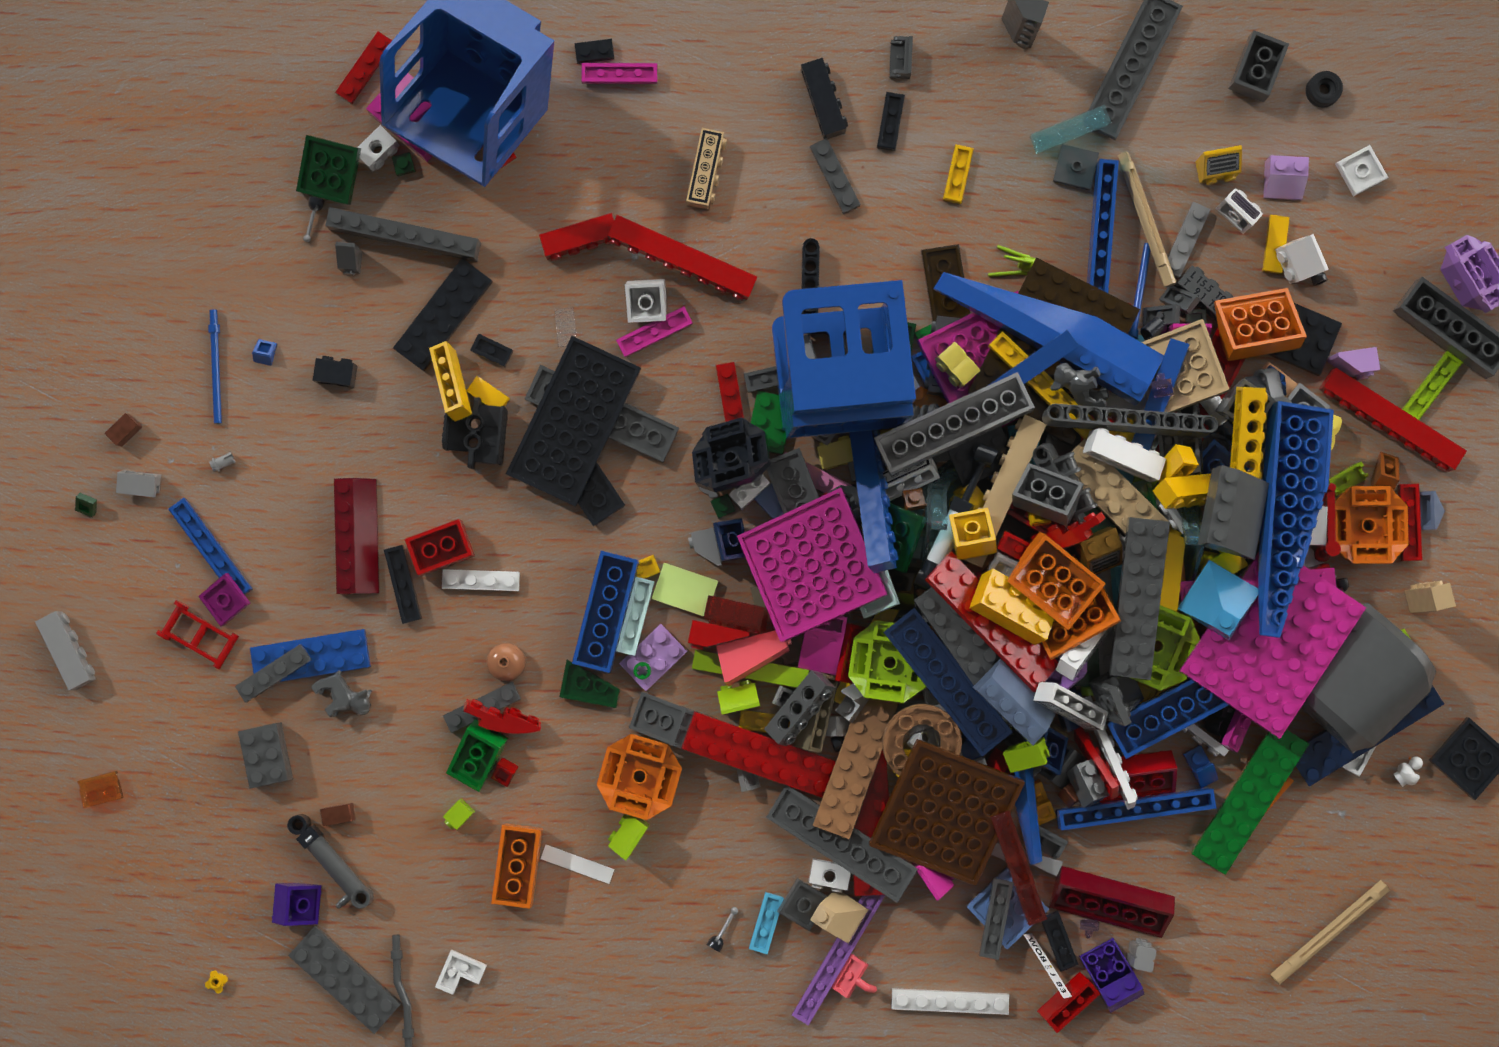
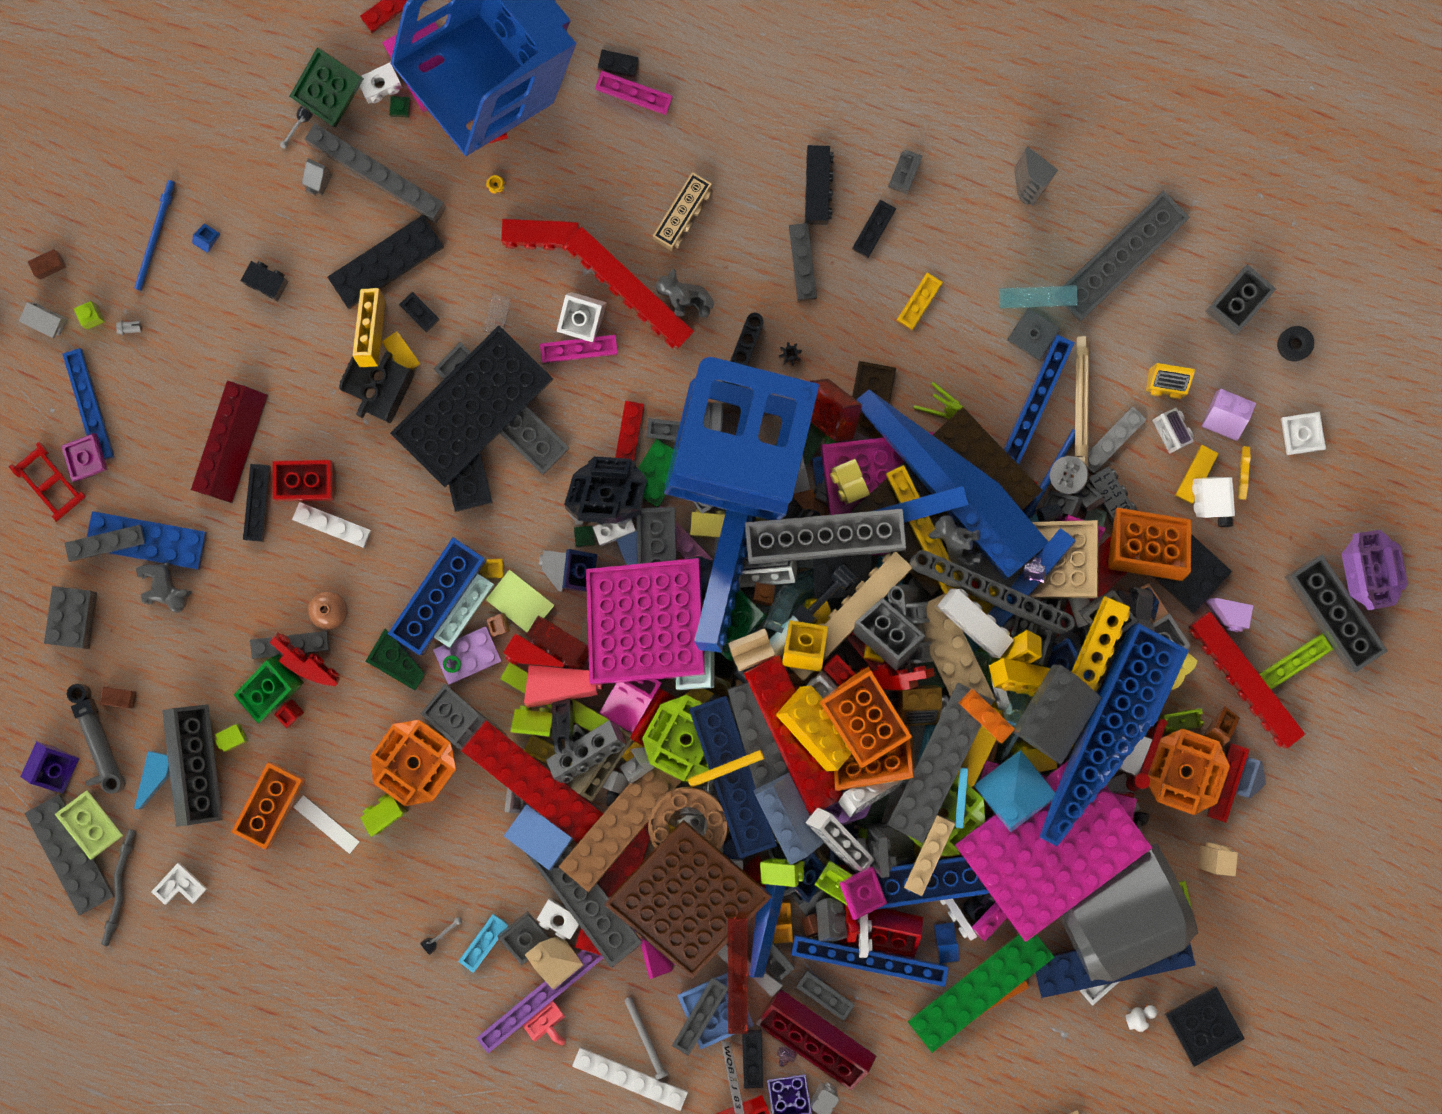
camera: 10 degrees right, 0 degrees up
(180, 463) = (89, 315): none -> lime brick
(353, 945) = (88, 825): none -> yellowish green tile
(399, 871) = (154, 775): none -> dark azure slope
(431, 853) = (192, 765): none -> dark grey brick
(520, 200) = (495, 179): none -> yellow plate
(672, 618) = (498, 625): none -> dark orange tile
(736, 245) = (684, 295): none -> dark grey animal
(768, 690) = (562, 725): none -> black hinge
(782, 804) = (538, 837): none -> medium blue tile
(859, 266) = (790, 360): none -> black gear
(923, 304) = (835, 411): none -> clear red brick
(923, 555) = (751, 650): none -> tan panel
(939, 676) = (726, 768): none -> yellow piece
(977, 985) = (645, 1038): none -> light grey bar
(1083, 746) = (830, 879): none -> lime hinge
(1105, 857) = (825, 995): none -> dark grey plate
(1110, 747) = (863, 893): none -> dark pink tile
(1158, 295) = (1072, 466): none -> light grey plate
(1160, 689) = (929, 854): none -> tan brick
(1169, 538) = (986, 716): none -> orange plate
(1171, 624) = (961, 797): none -> medium azure tile
(1318, 220) = (1244, 473): none -> yellow tile

